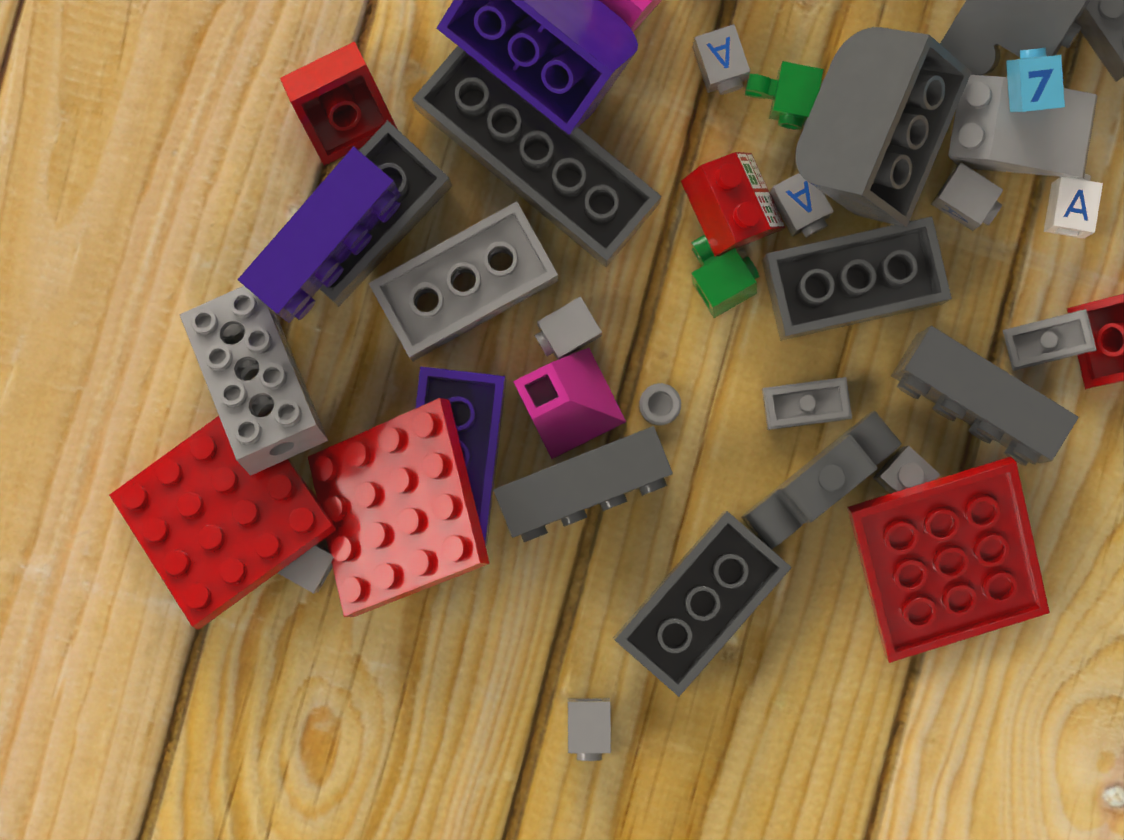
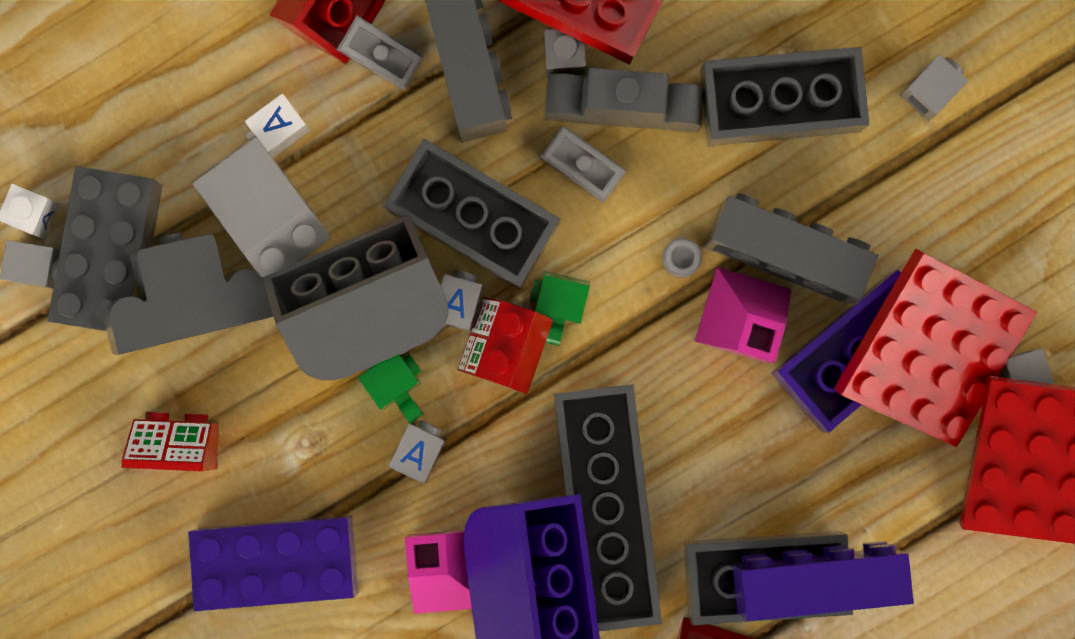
camera: 140 degrees left, 0 degrees up
(233, 343) = (978, 524): light grey brick -> none
(464, 253) = (754, 489): light grey brick -> none
(567, 329) = (699, 366): light grey brick -> none
(968, 198) = (341, 198): light grey brick -> none
(1035, 81) = (229, 227): medium azure brick -> none

